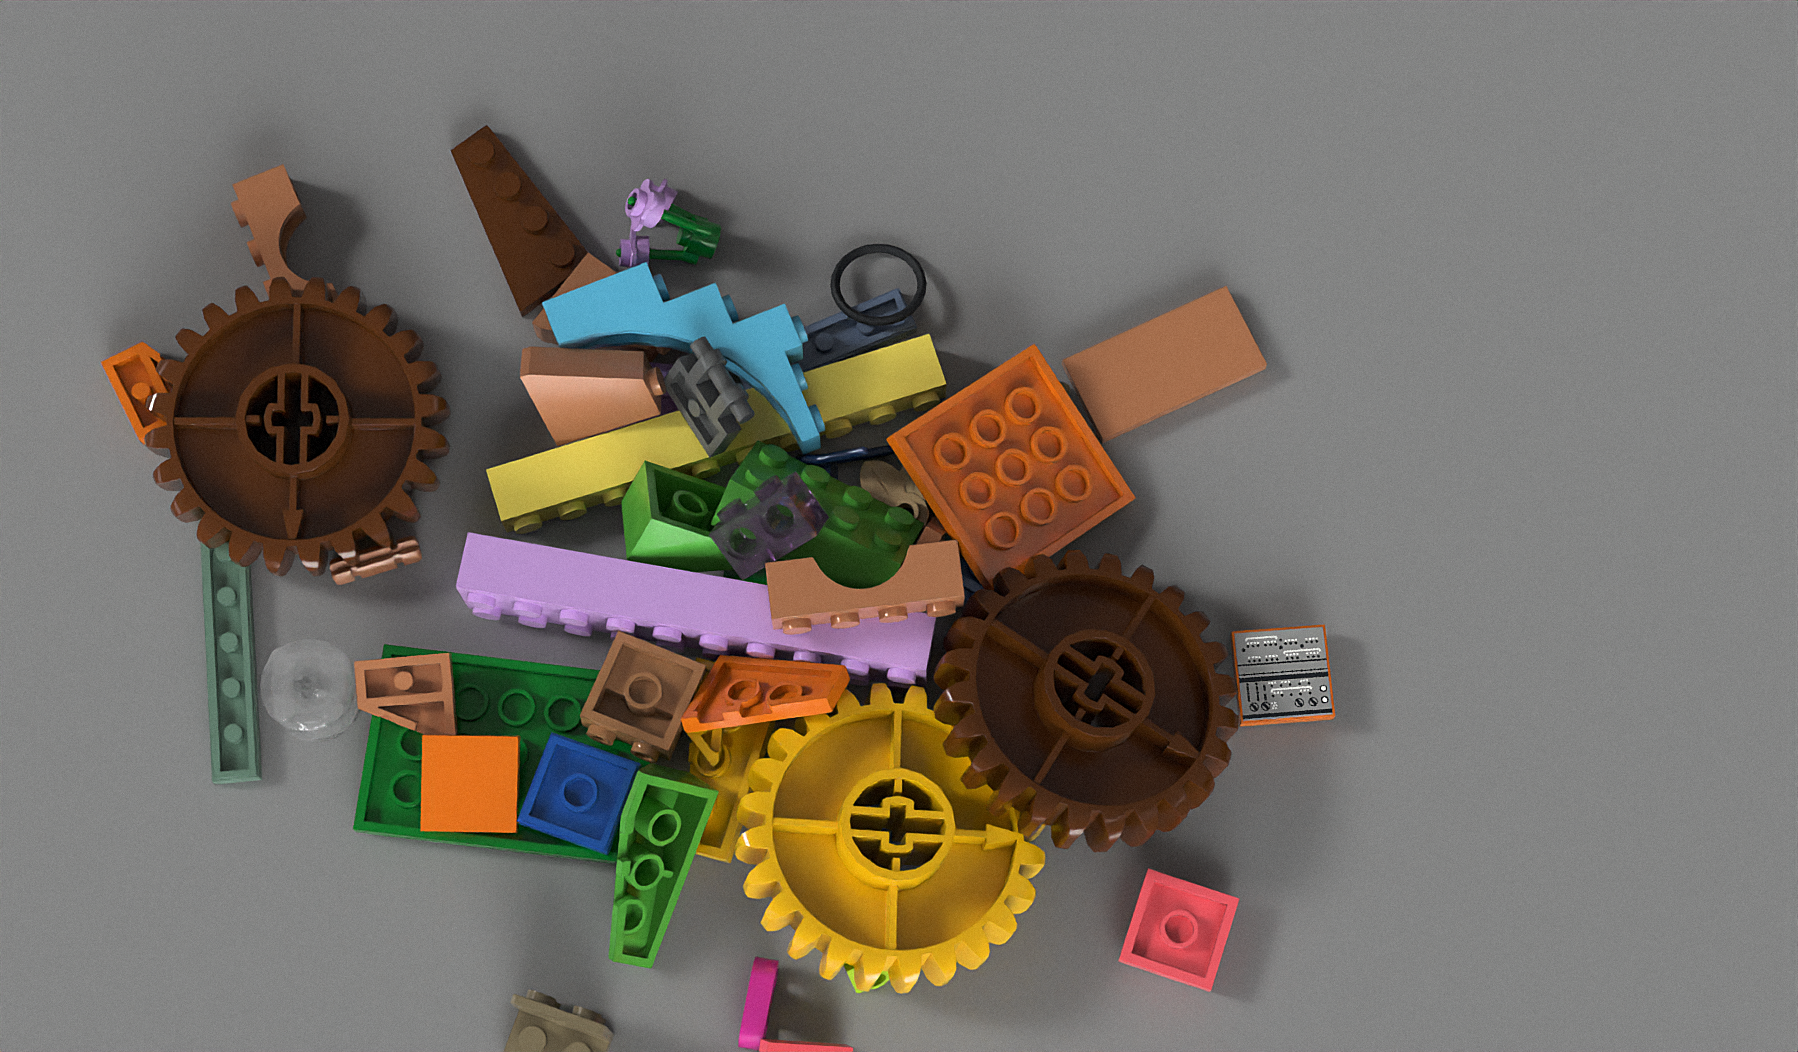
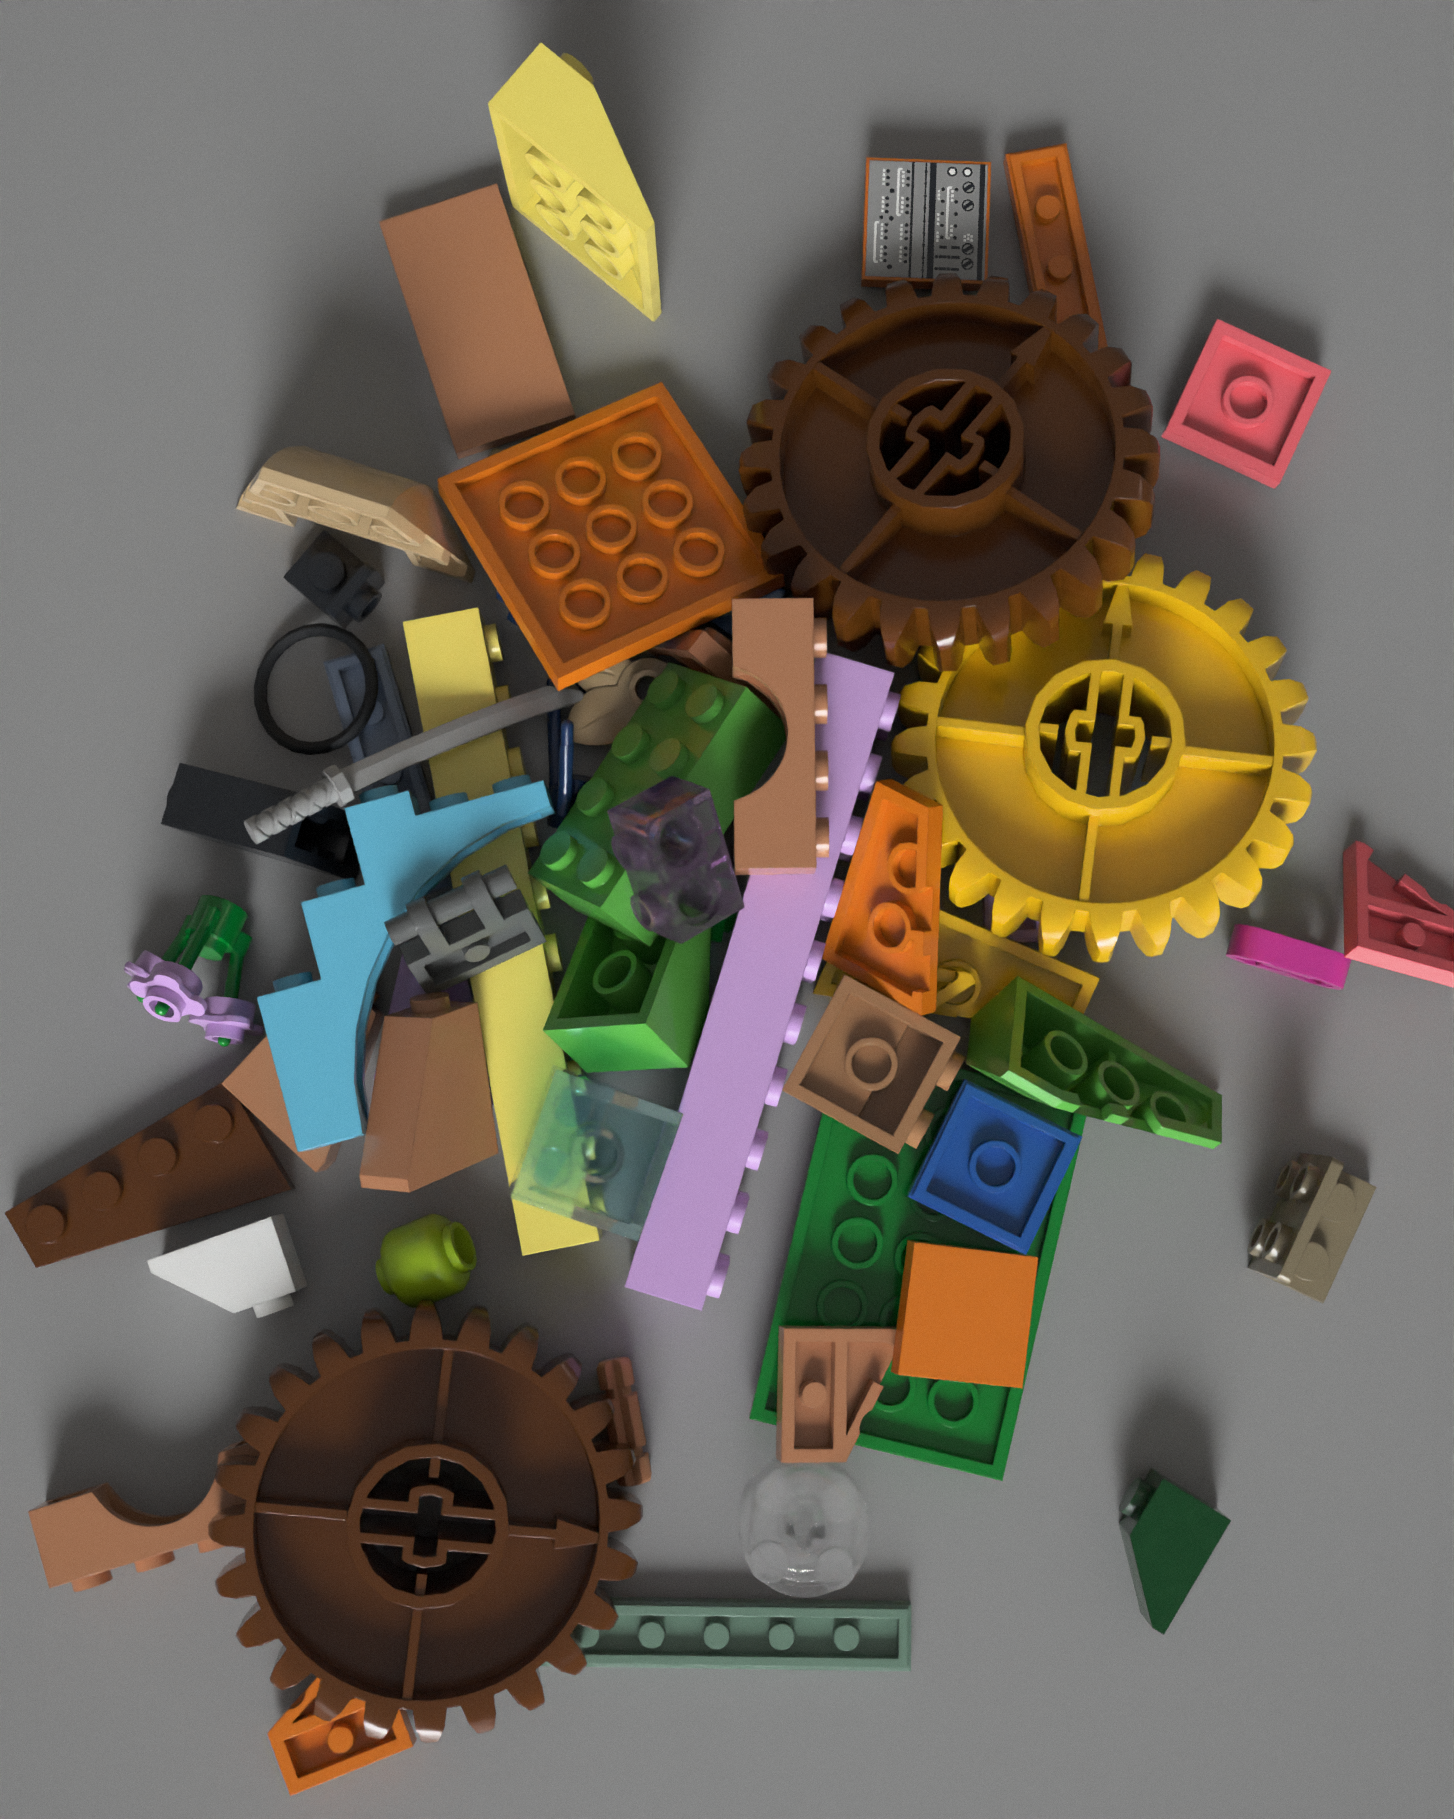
camera: 85 degrees left, 10 degrees up
(318, 953) = (1166, 1543): none -> dark green slope
(461, 283) = (239, 1268): none -> white slope
(478, 408) = (426, 1260): none -> lime head
(560, 500) = (595, 1153): none -> clear light blue slope
(777, 253) = (217, 804): none -> black slope
(801, 300) = (340, 784): none -> light grey sword
(958, 289) = (336, 581): none -> black bracket
(1012, 295) = (359, 502): none -> tan wedge
(1262, 408) = (573, 174): none -> light yellow slope
(1277, 778) = (1052, 231): none -> orange tile

